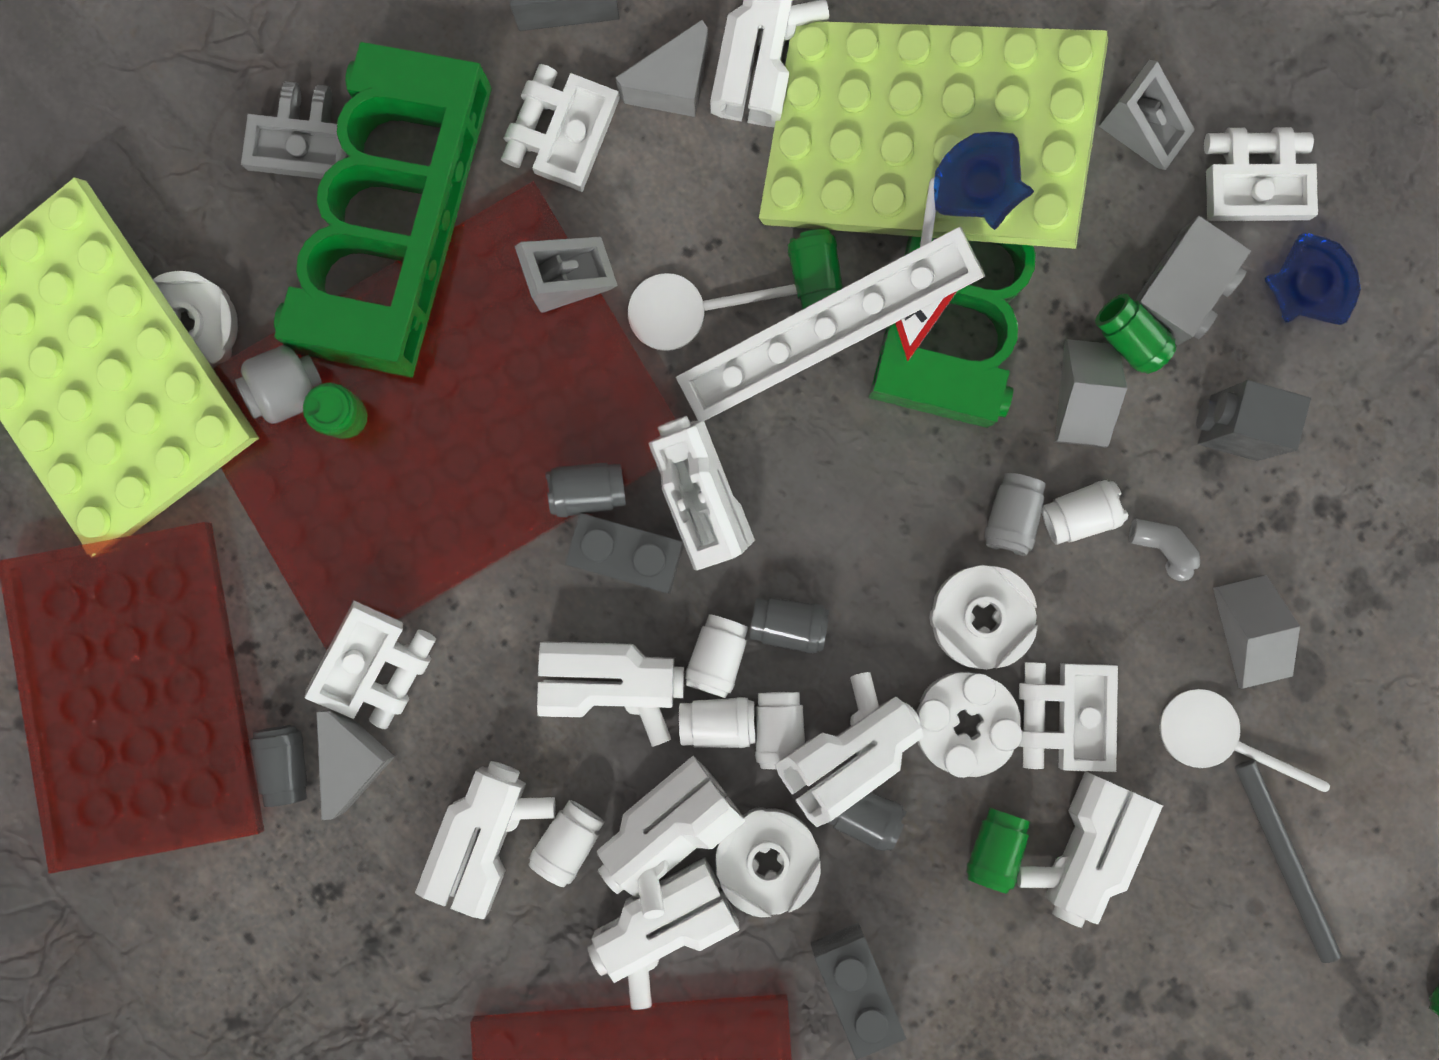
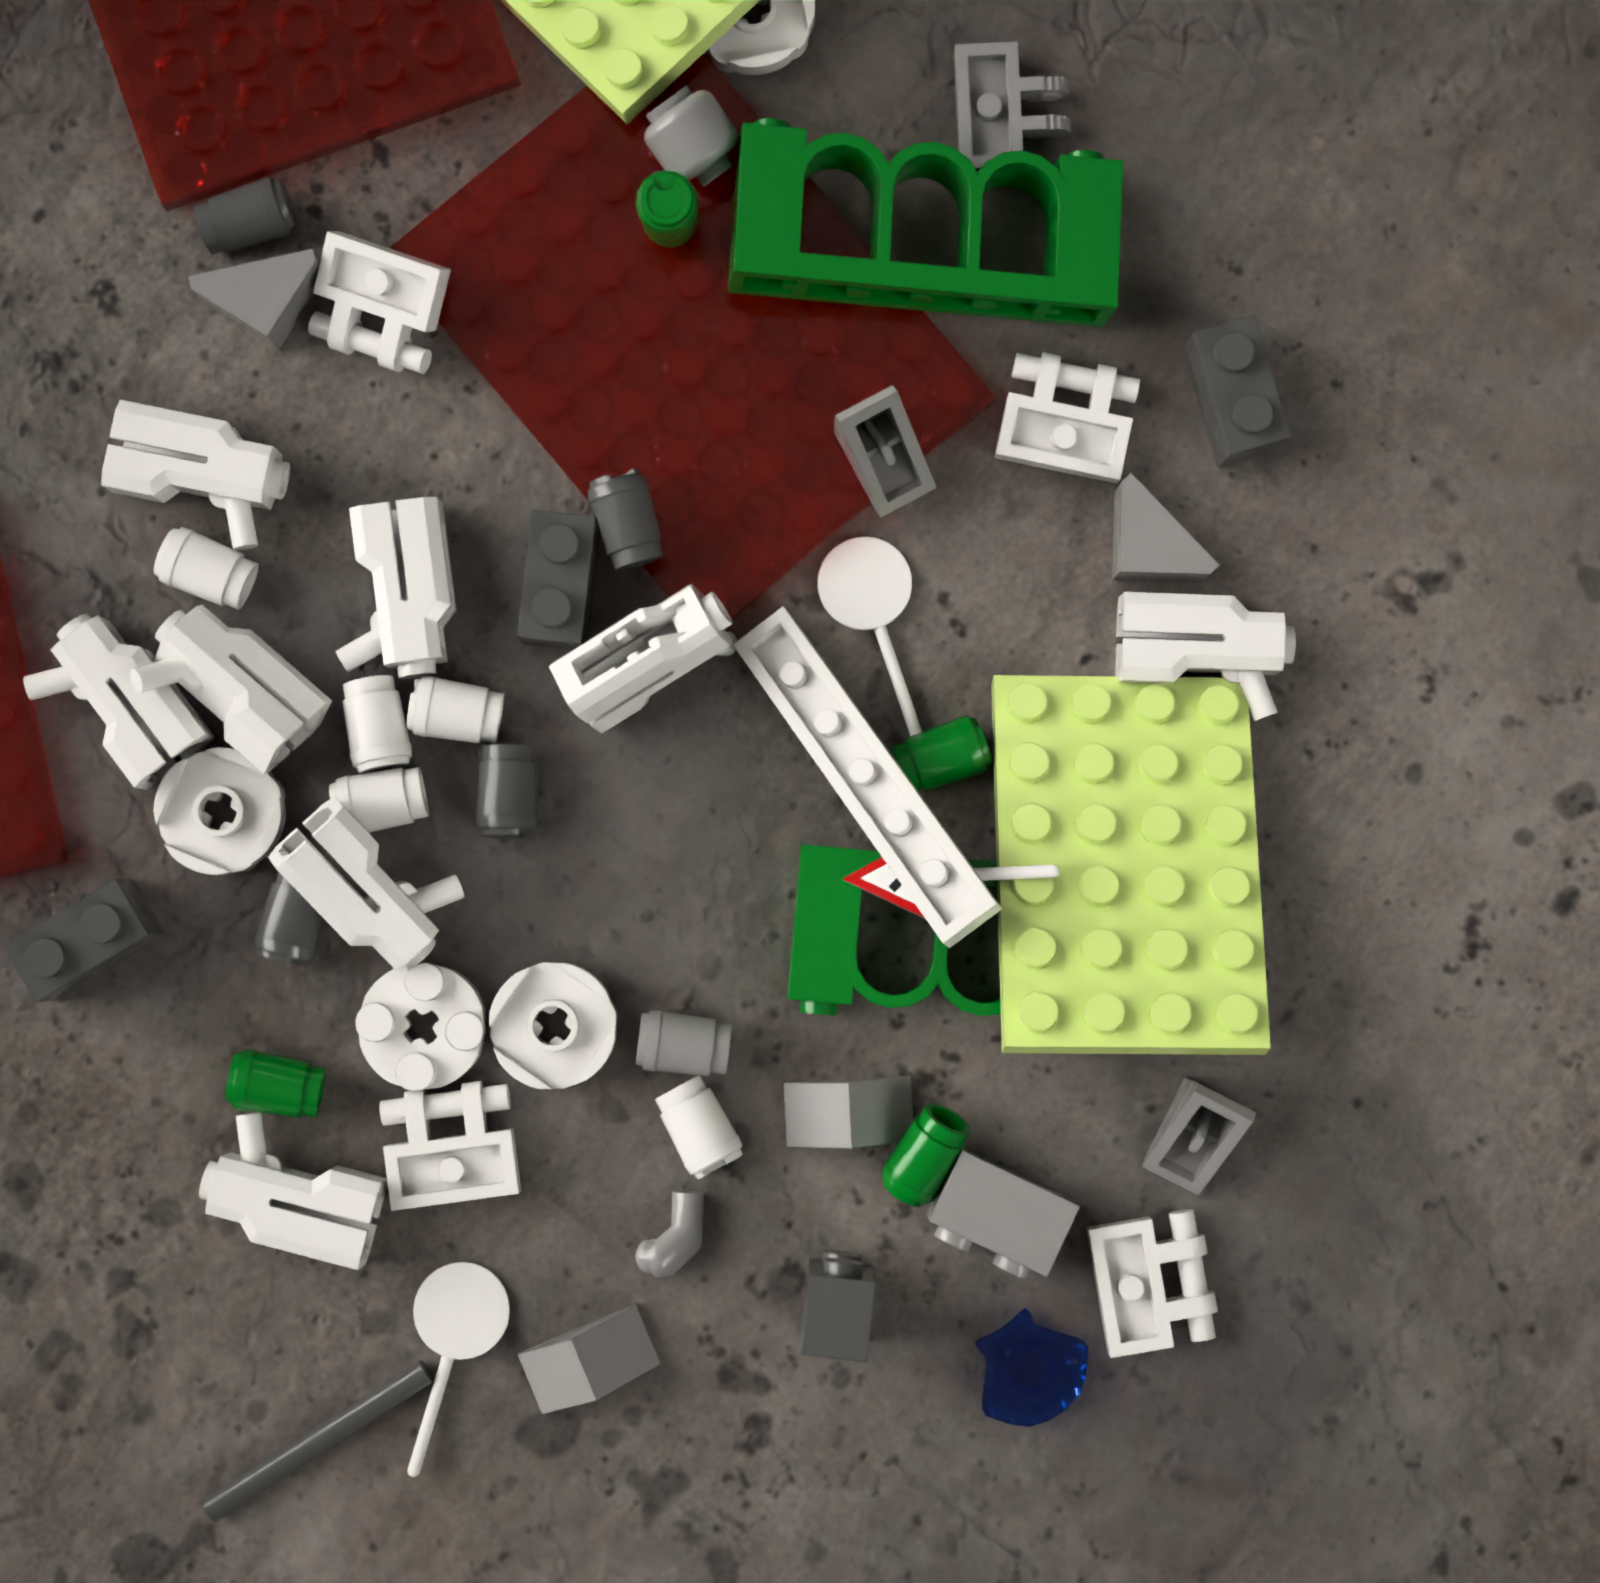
camera: 80 degrees right, 0 degrees up
(981, 178) = (1062, 923): clear blue animal -> none

